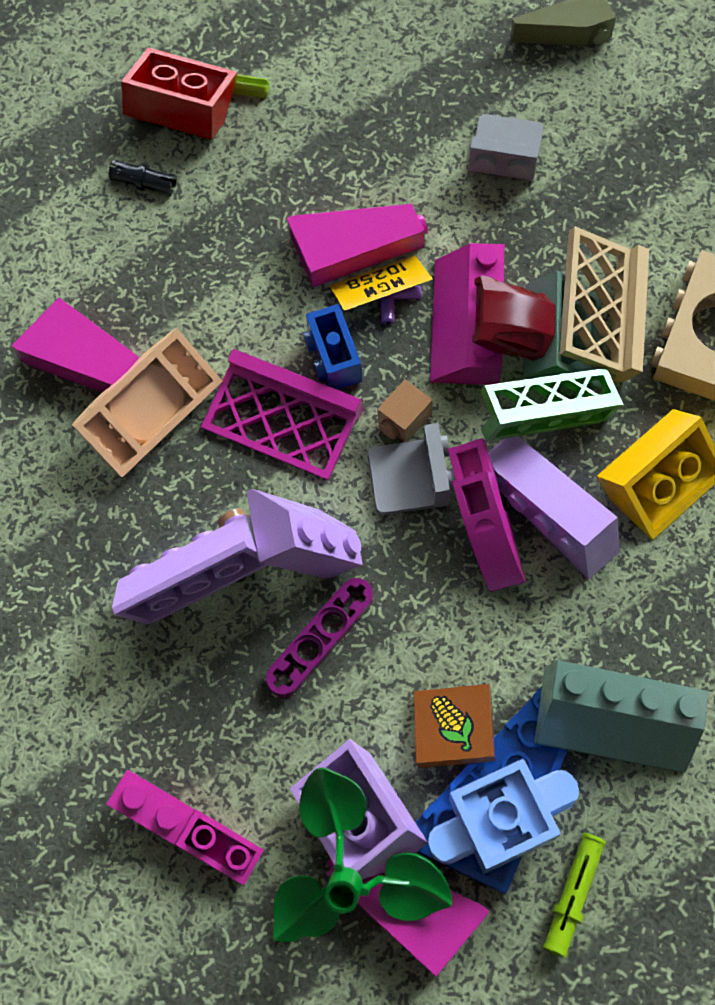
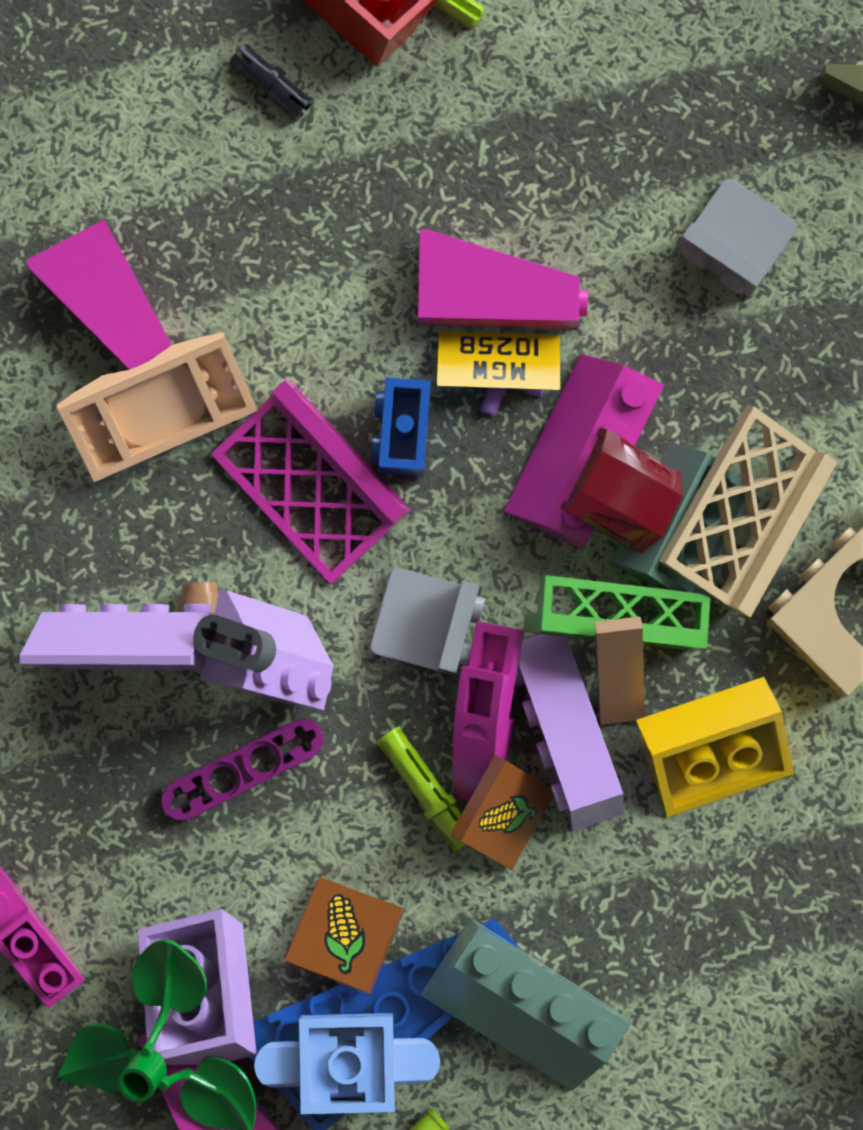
camera: 15 degrees right, 15 degrees up
(273, 508) = (237, 635): none -> dark grey beam
(404, 412) = (450, 545): medium nougat brick -> none
(471, 595) = (423, 784): none -> lime pin
(531, 580) = (502, 812): none -> dark orange tile
(569, 437) = (619, 670): none -> medium nougat tile

